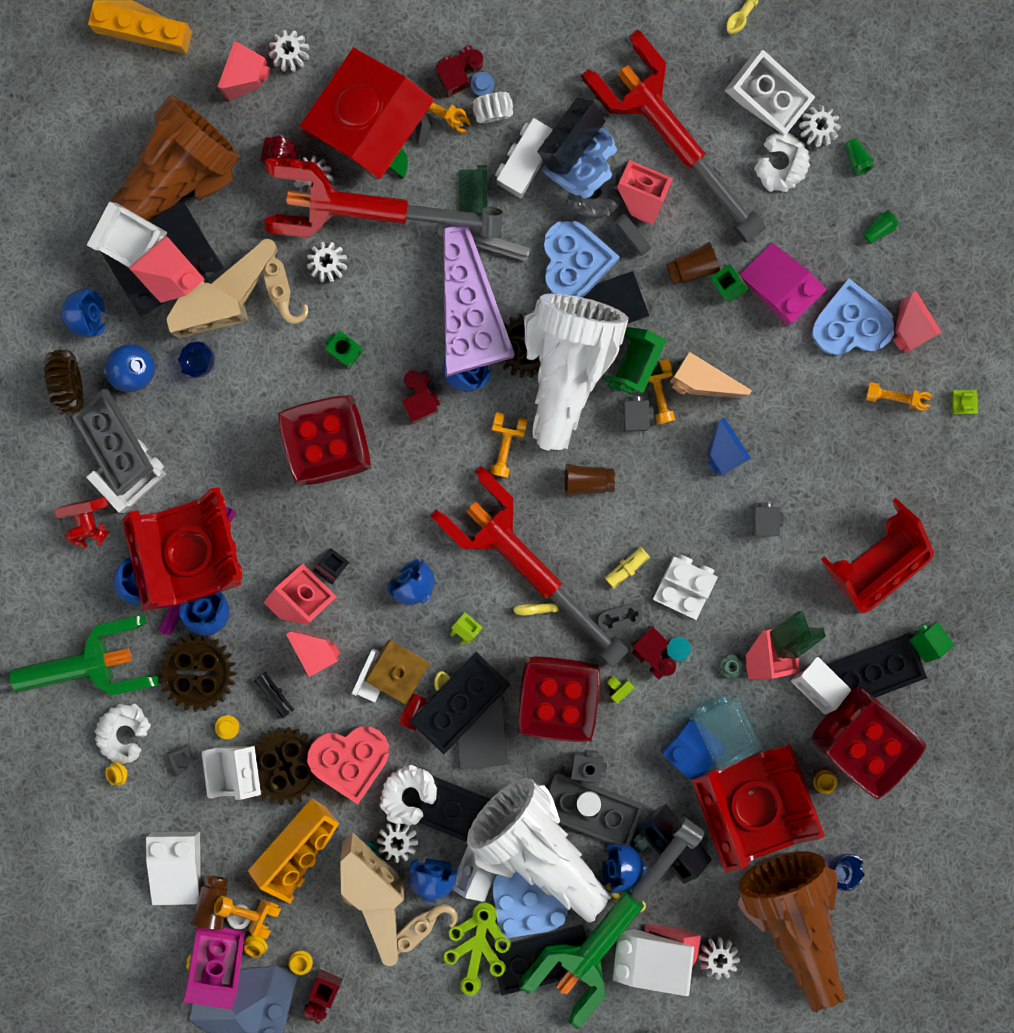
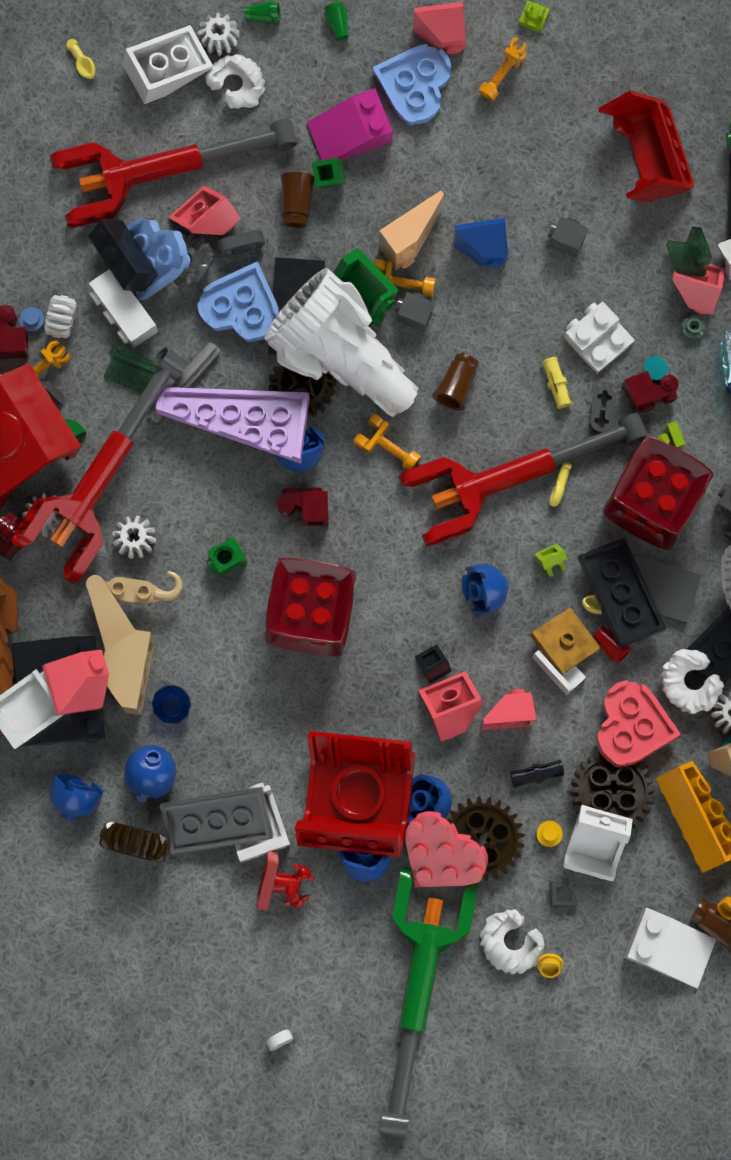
camera: 70 degrees left, 10 degrees down
(164, 644) = (441, 854): none -> coral plate

